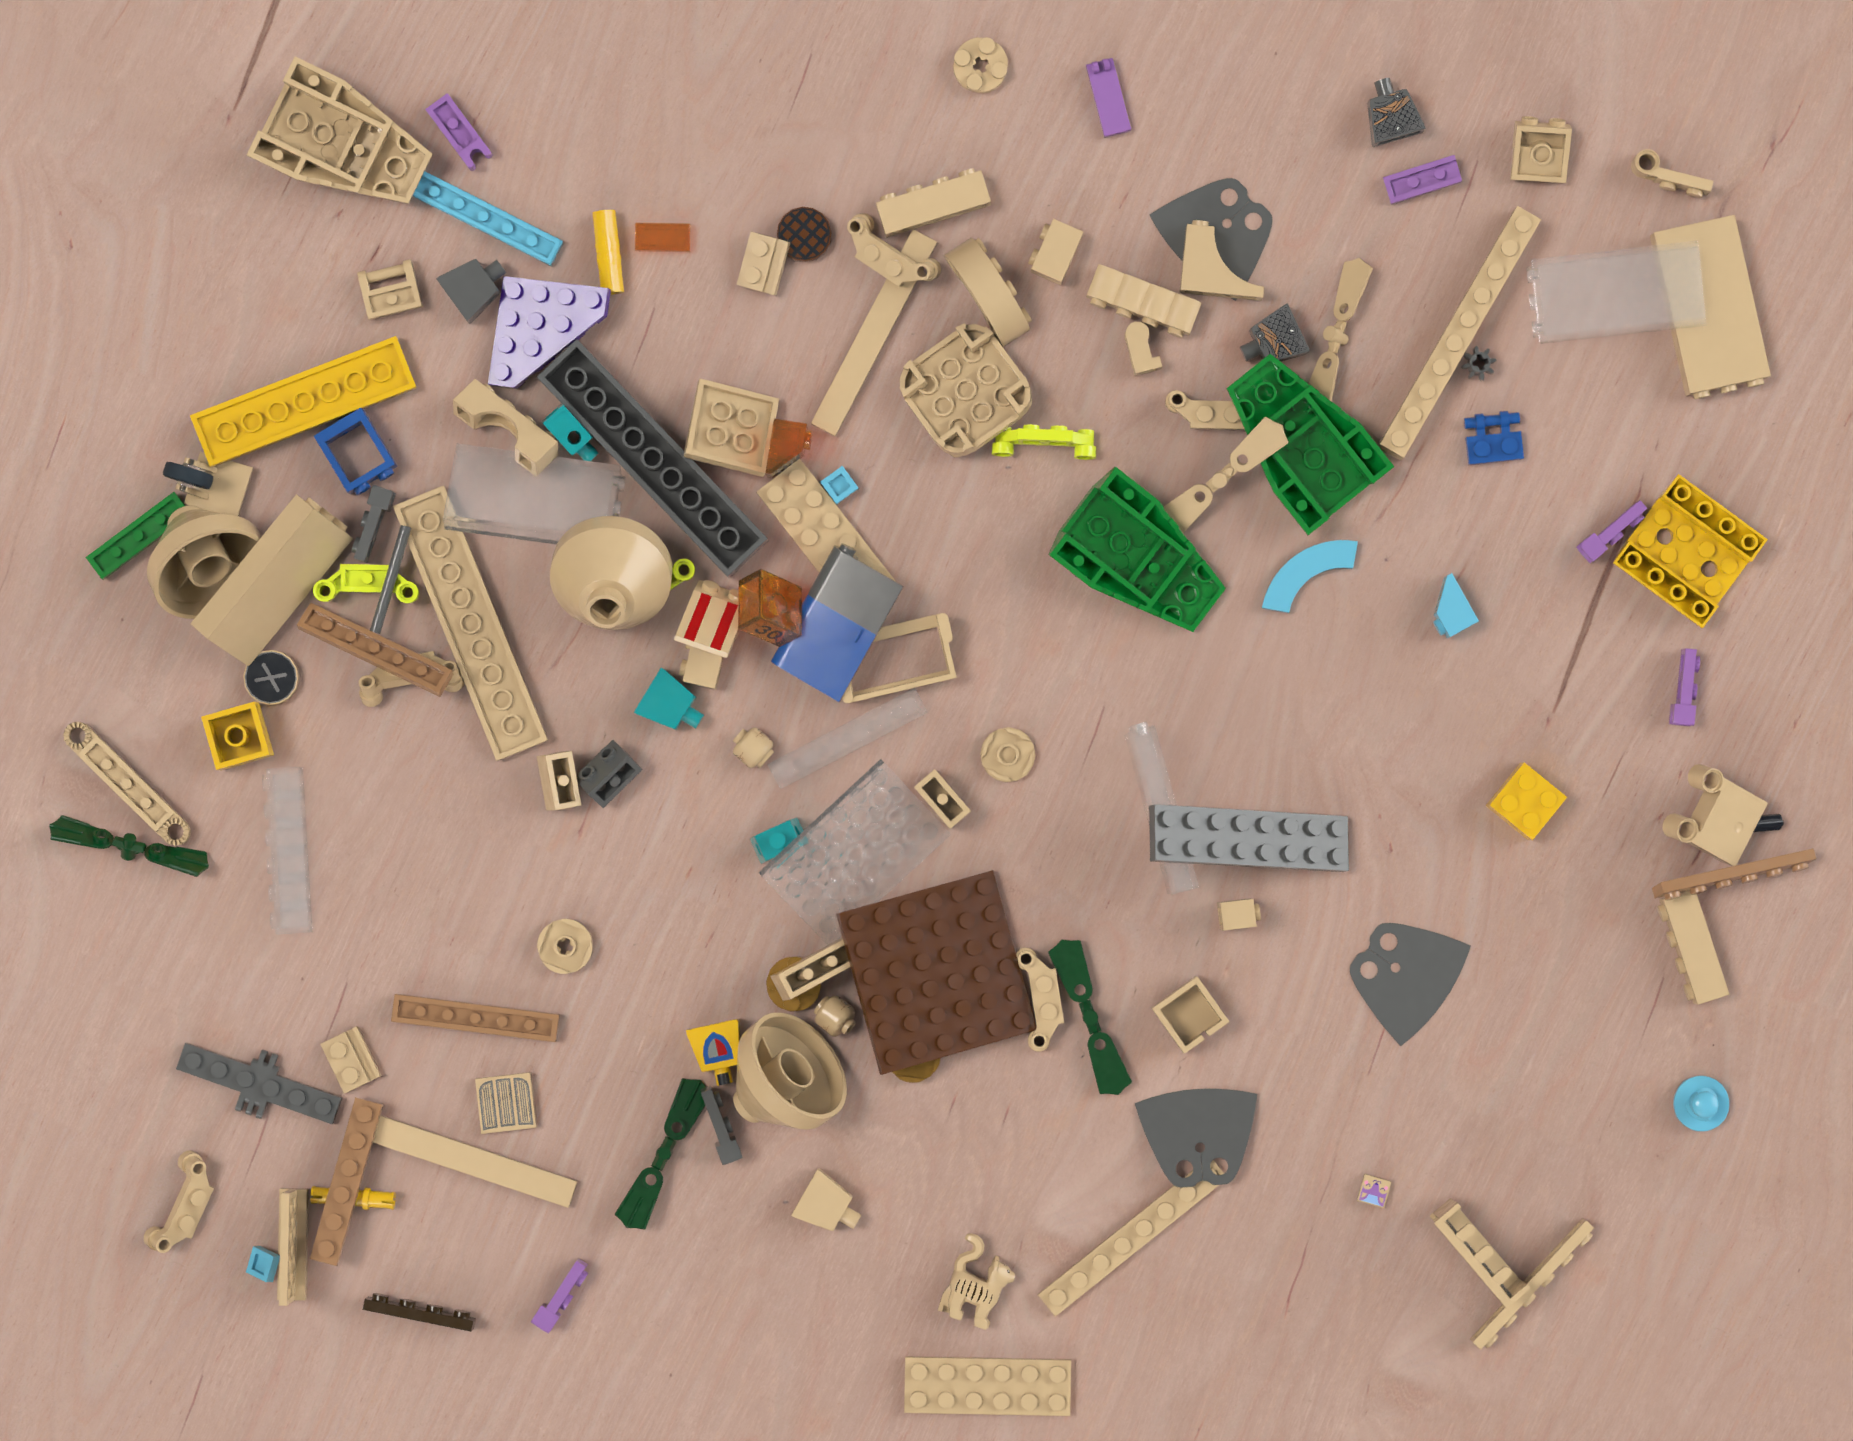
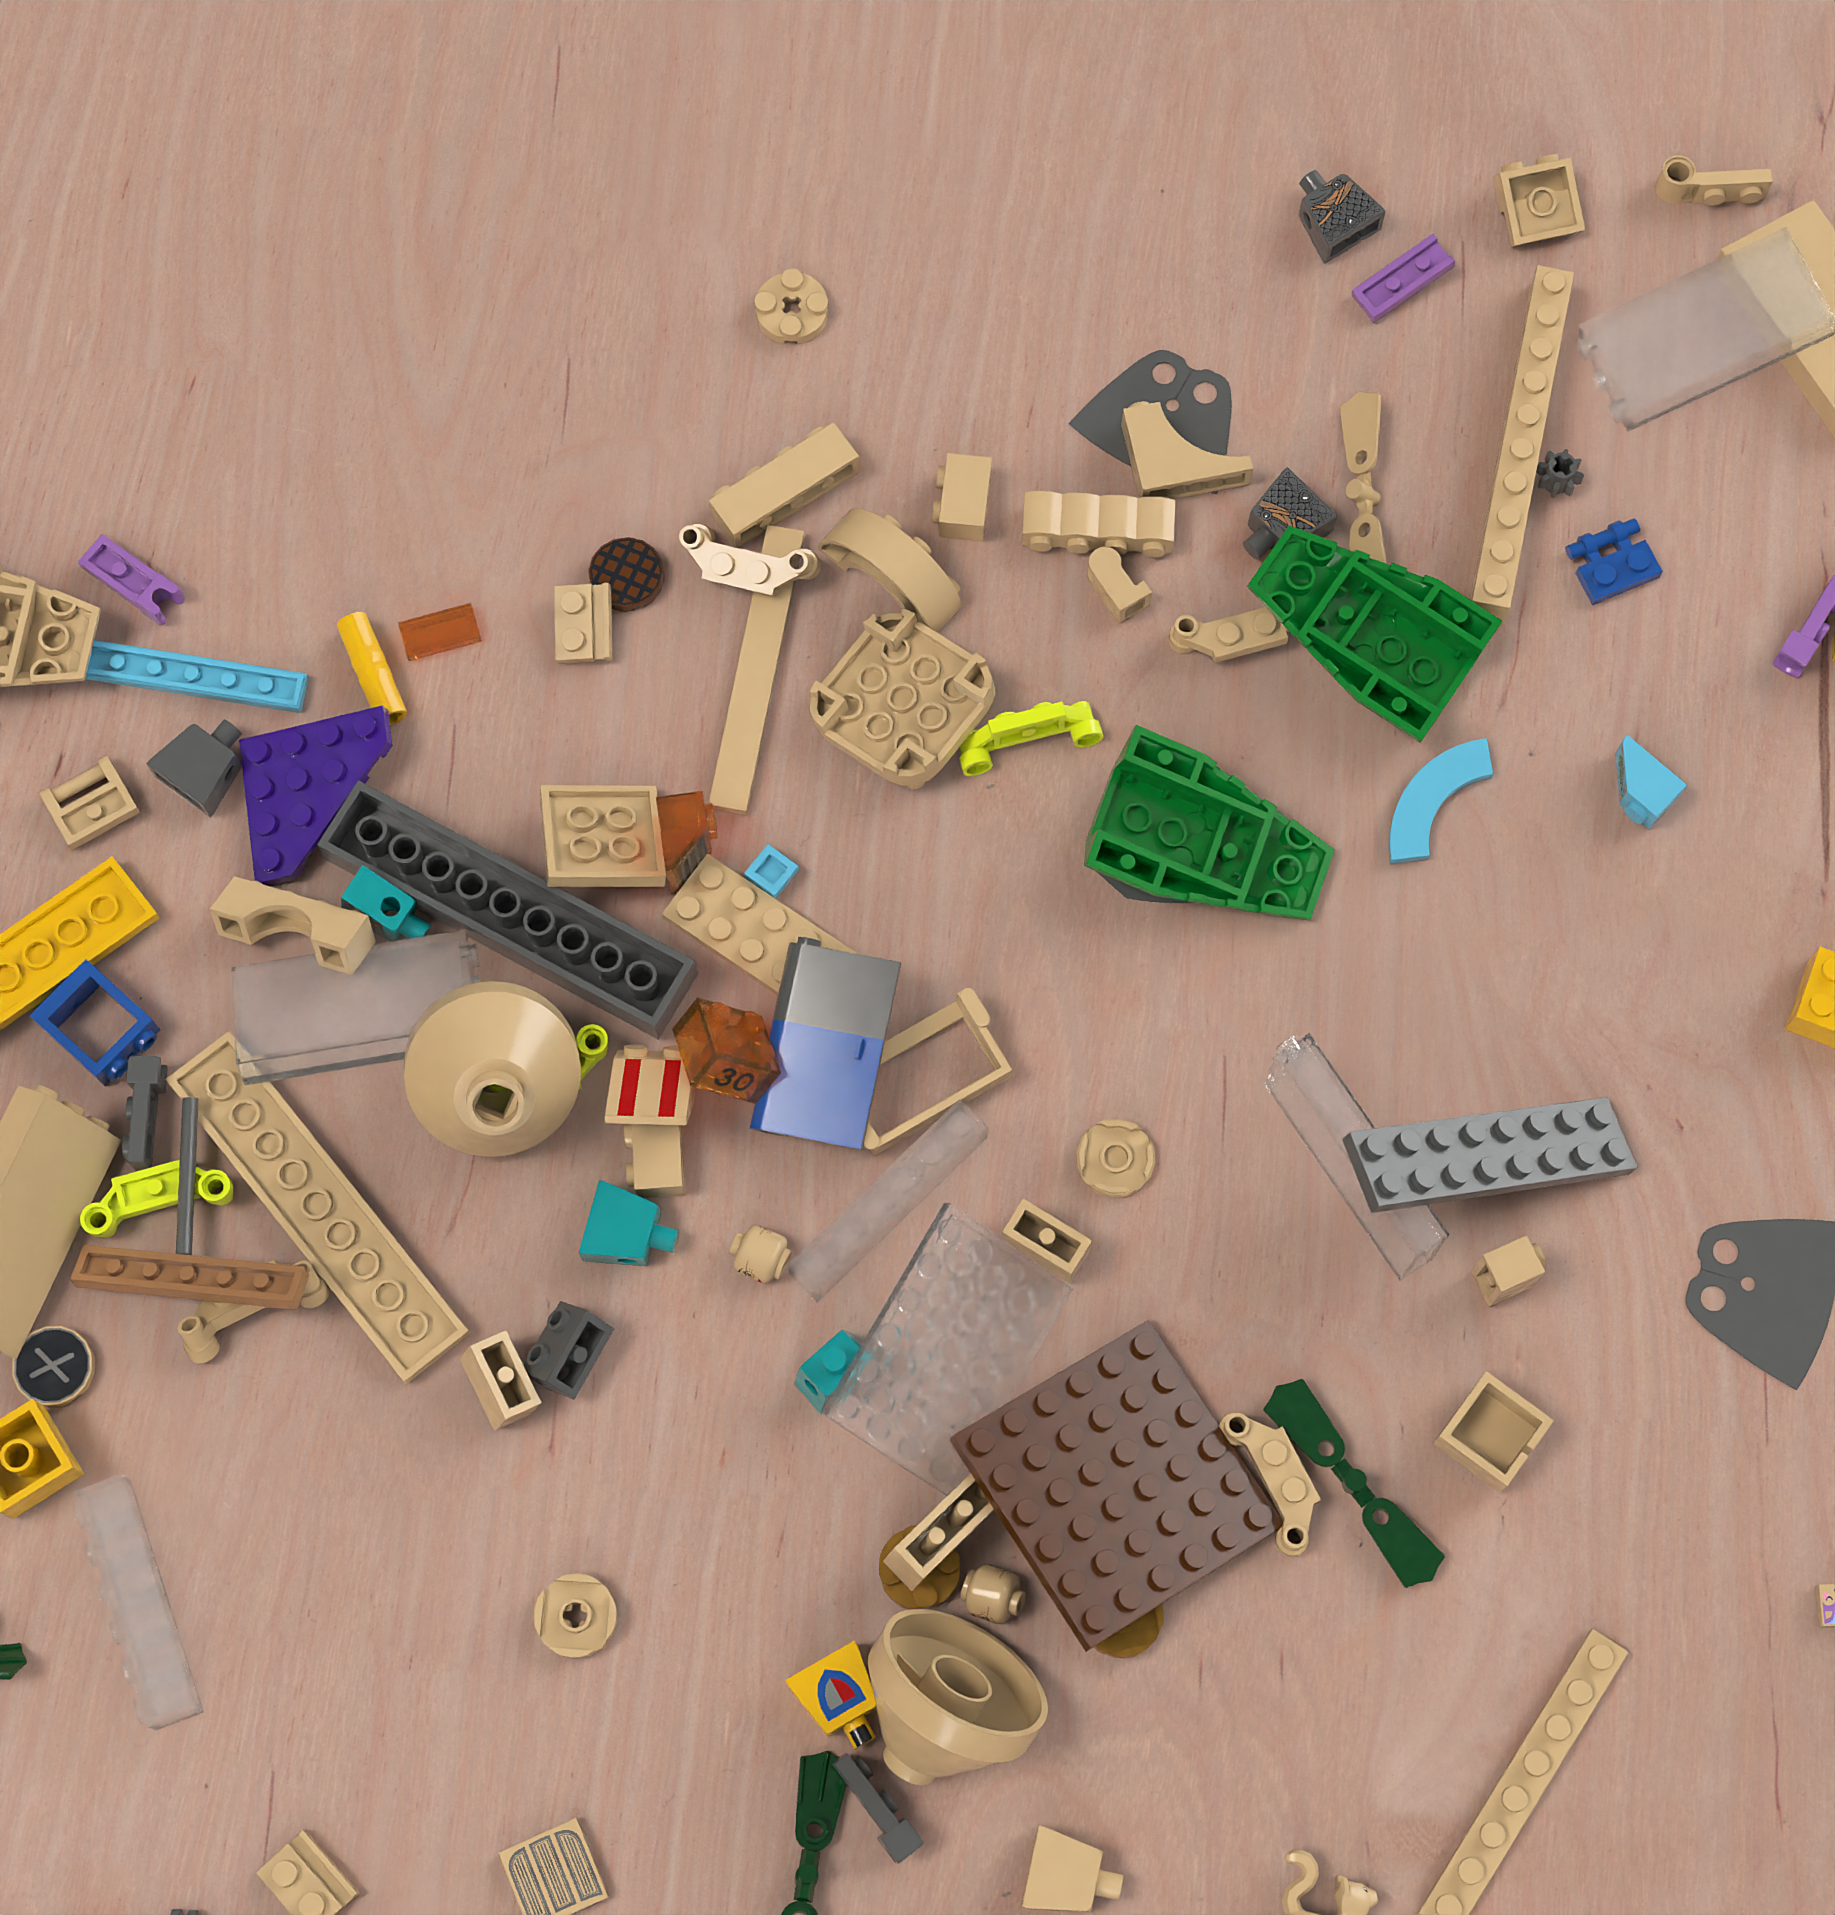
camera: 20 degrees left, 15 degrees down
(475, 1017) = (473, 1761): medium nougat plate -> none
(1108, 97) = (968, 299): medium lavender hinge -> none
(1194, 1116) = (1541, 1583): dark grey piece -> none
(1257, 446) = (1314, 644): tan piece -> none

